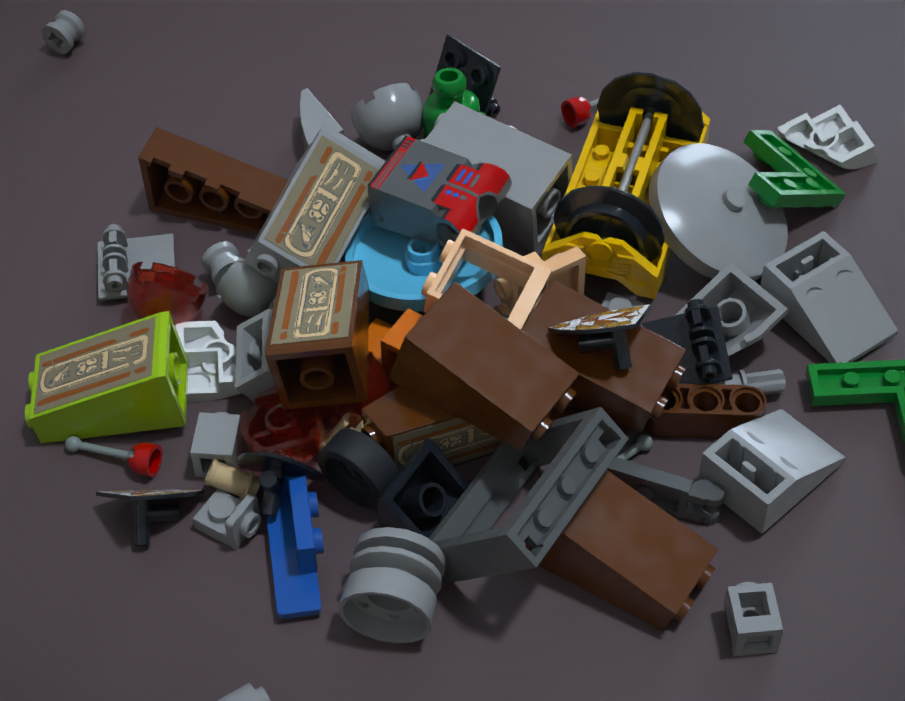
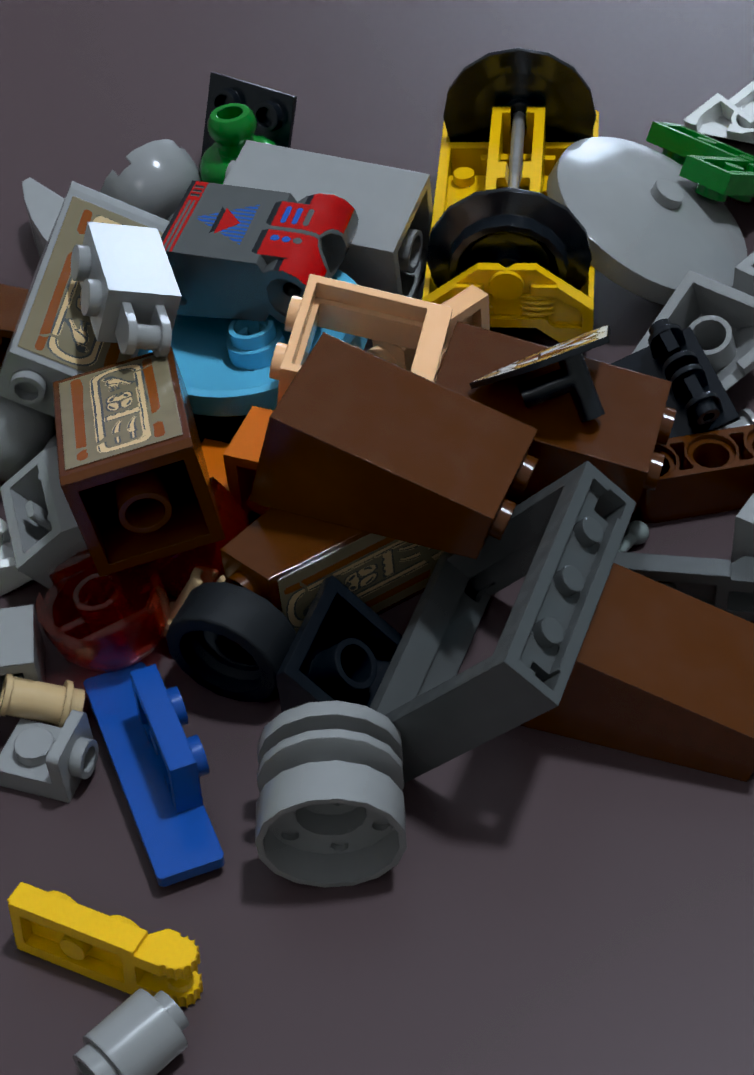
camera: 10 degrees left, 5 degrees down
(236, 650) = (104, 945): none -> yellow hinge
(274, 470) = (104, 662): black shield -> none
(342, 213) = (127, 287): none -> light grey brick
(577, 110) = (415, 150): red hinge -> none

